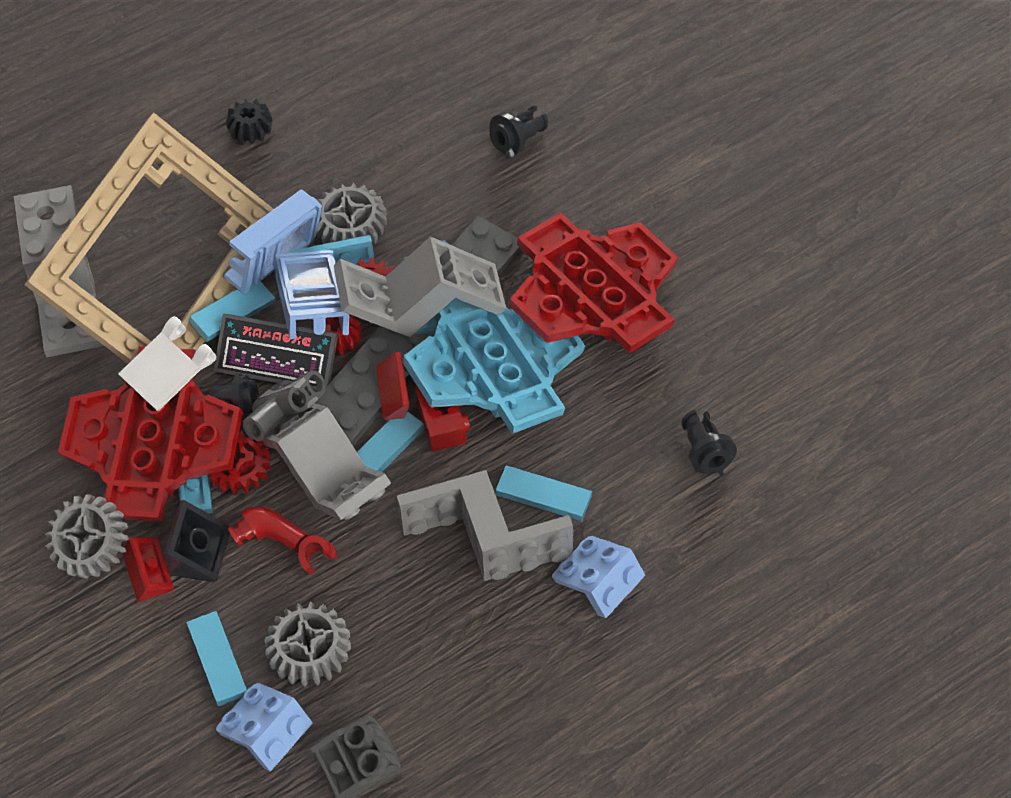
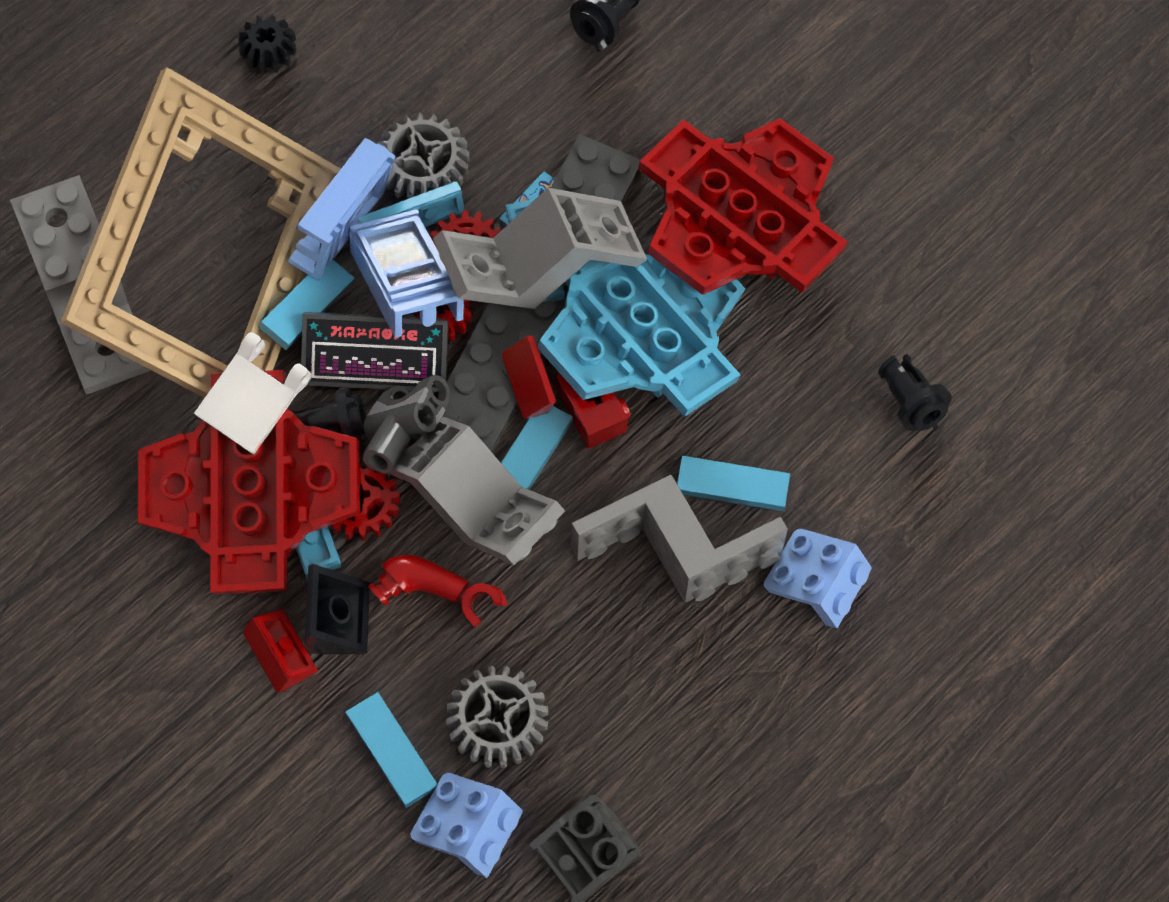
camera: 15 degrees left, 10 degrees up
(85, 513) = (201, 641): light grey gear -> none

